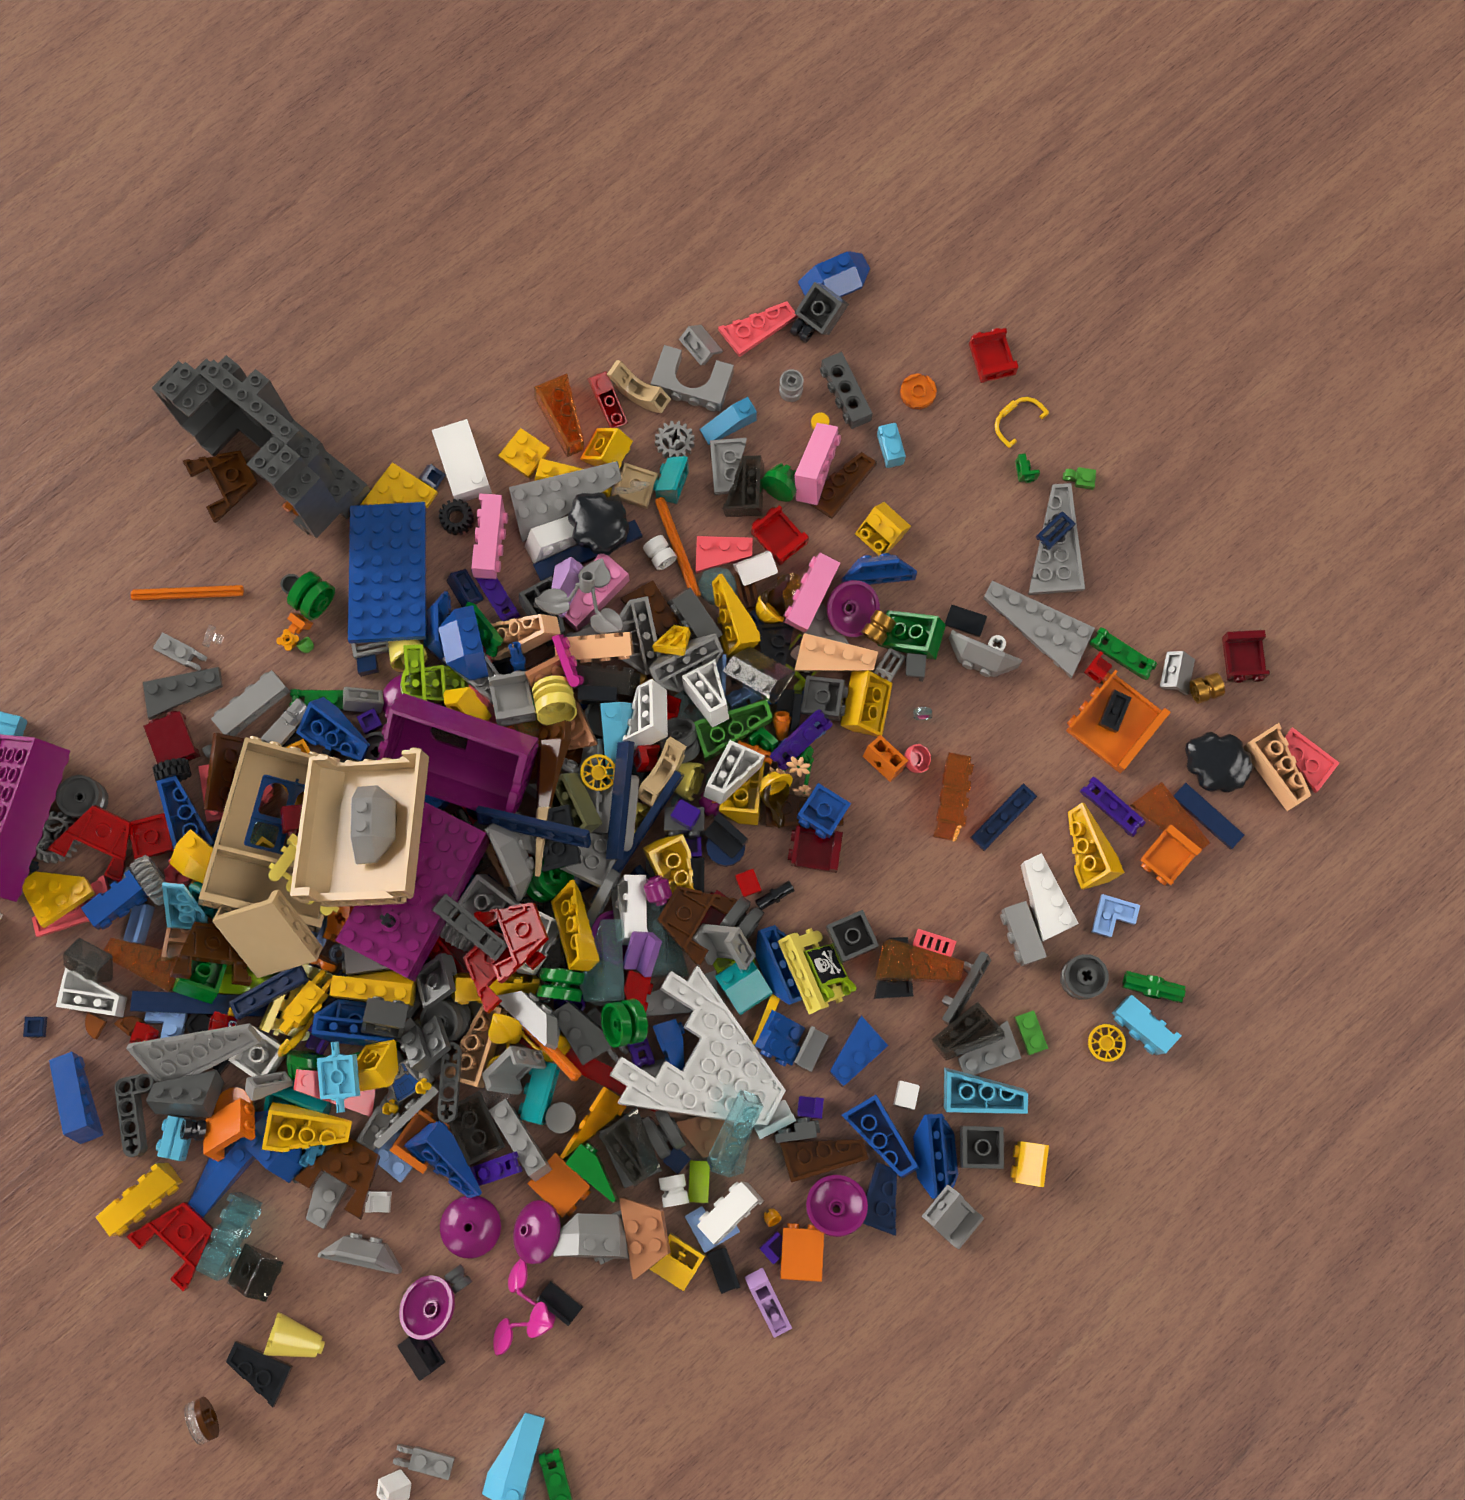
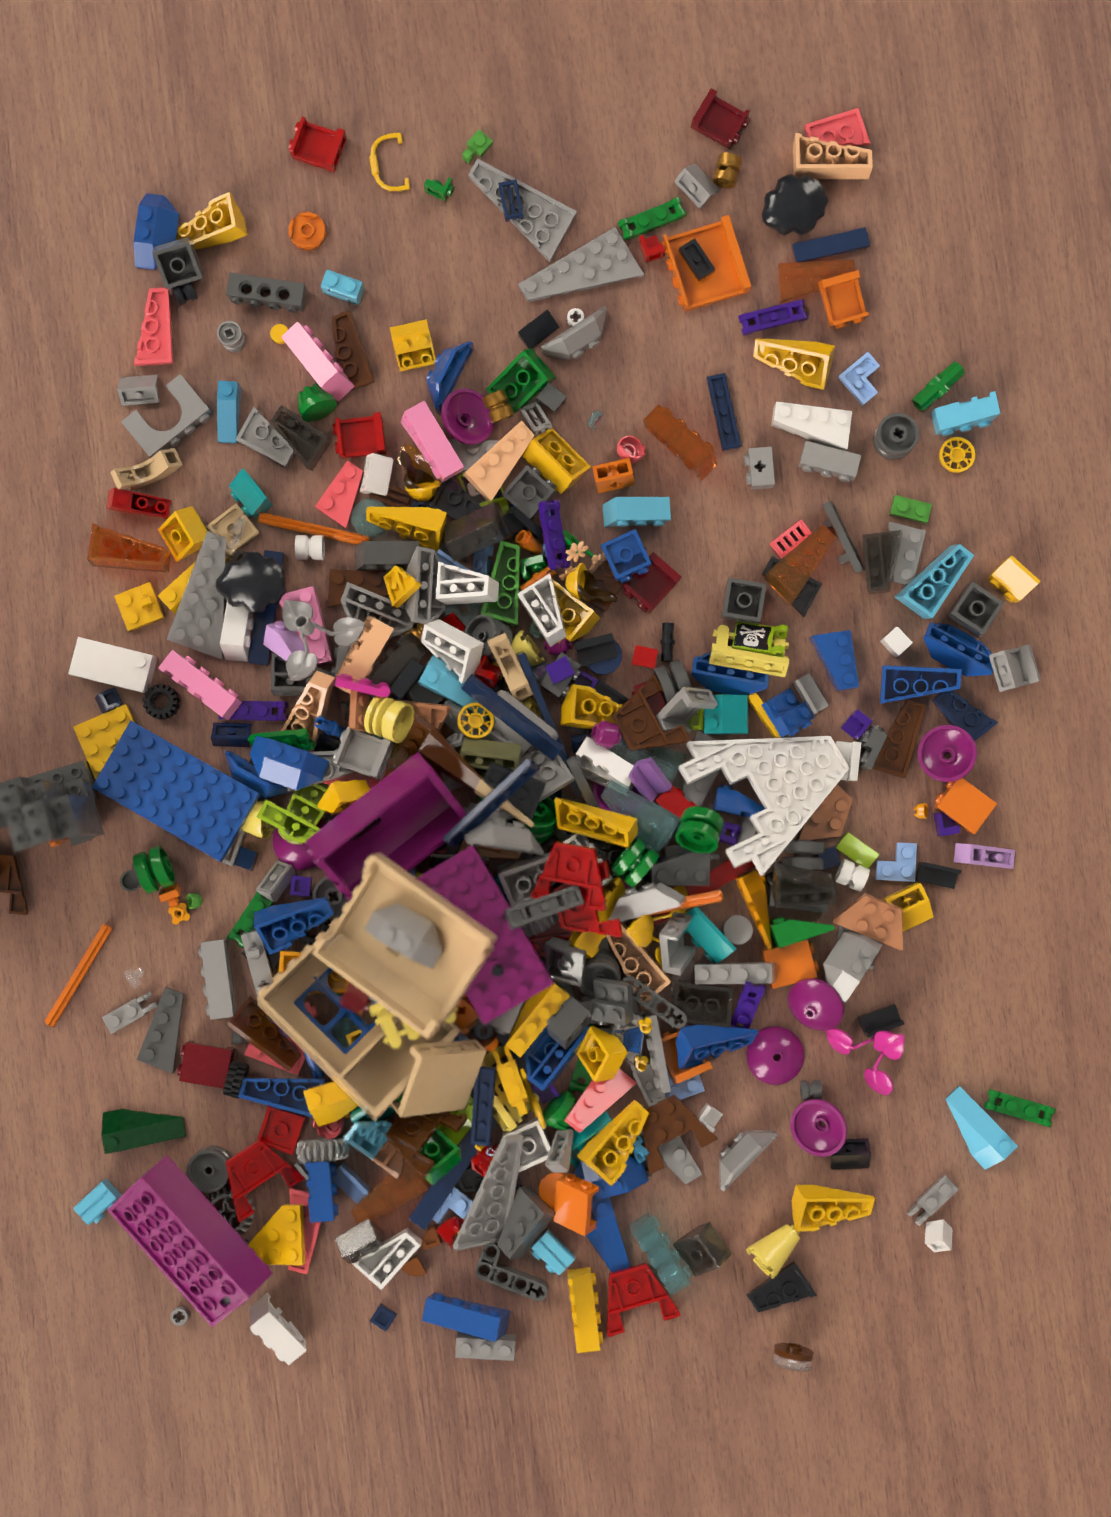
camera: 55 degrees left, 10 degrees up
(61, 1147) = (478, 1348): none -> light grey brick
(81, 715) = (133, 1129): none -> dark green wedge
(193, 1130) = (557, 1233): black wheel -> none
(338, 1077) = (593, 1089): medium azure plate -> none
(357, 1357) = (821, 1205): none -> yellow wedge
(668, 435) = (209, 475): light grey gear -> none
(729, 1211) = (898, 841): white wedge -> none
(732, 1144) = (847, 806): clear light blue wedge -> none
(868, 797) = (636, 511): none -> medium azure wedge
(873, 319) = (216, 224): none -> yellow wedge
(971, 887) = (762, 457): none -> light grey brick

